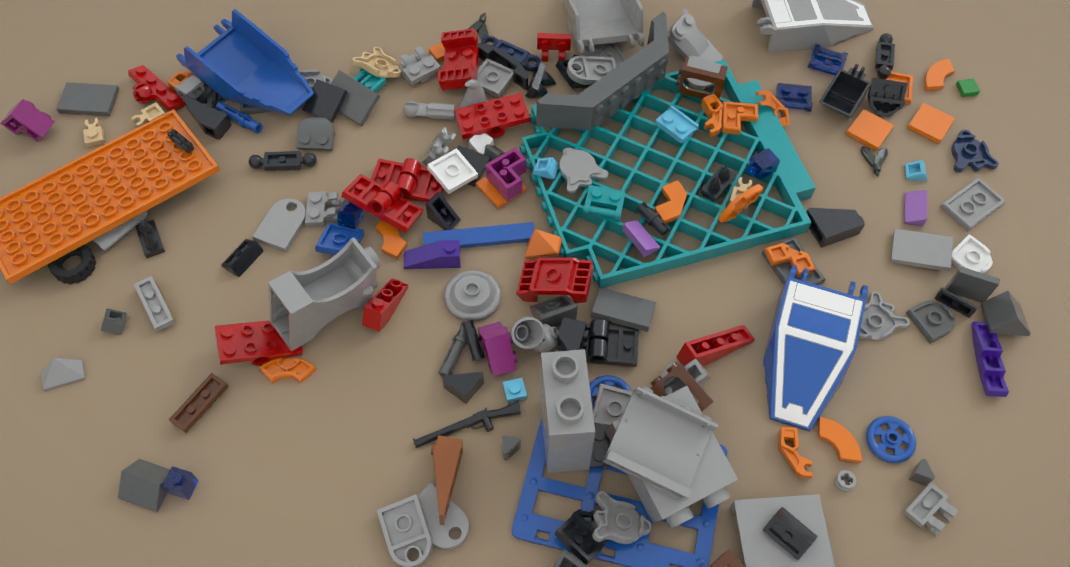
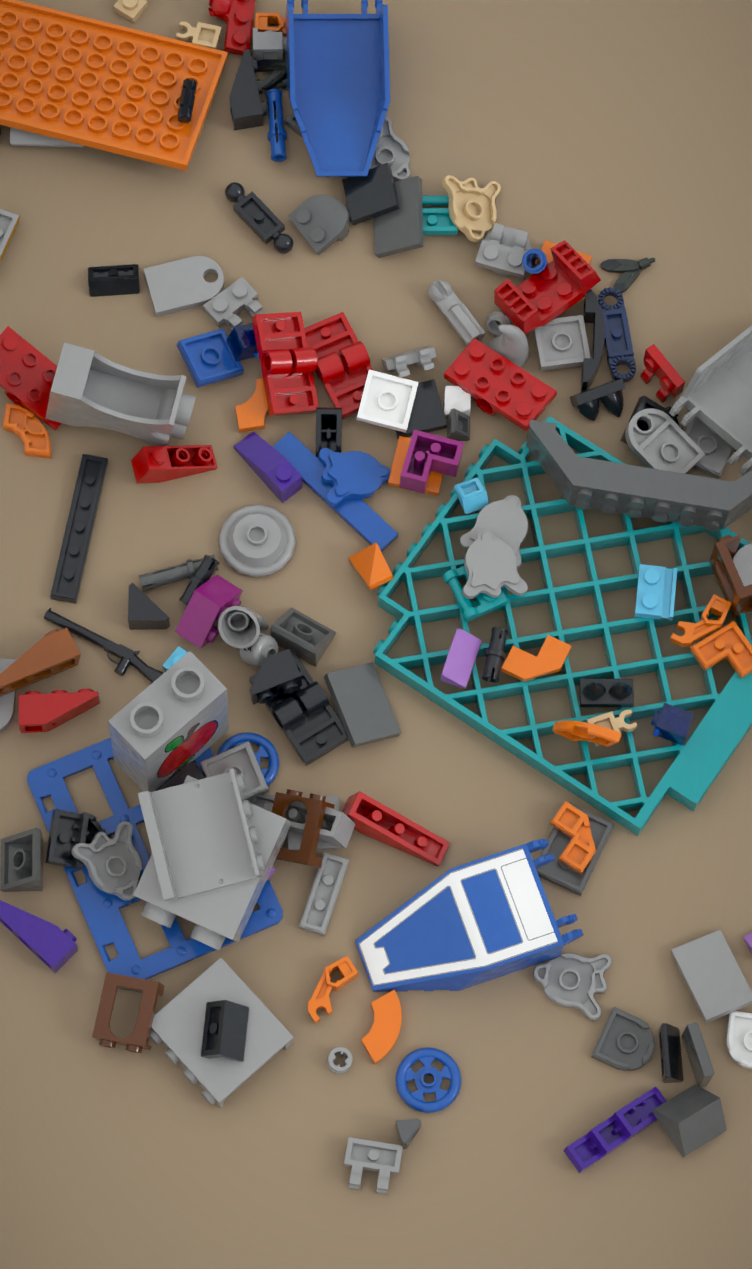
camera: 50 degrees right, 10 degrees up
(149, 238) = (60, 173): black tile -> none
(377, 386) = (79, 529): none -> black tile
(442, 50) = (530, 258): none -> blue cone
(458, 96) = (493, 324): none -> light grey plate
(478, 219) = (351, 474): none -> blue tile
(480, 490) = (47, 711): none -> red slope
(510, 446) = (110, 703): dark grey slope -> none
(555, 277) = (335, 609): red plate -> none
(601, 183) = (490, 566): none -> light grey tile
(729, 415) = (324, 894): none -> light grey tile
(834, 224) = (665, 858): black slope -> none

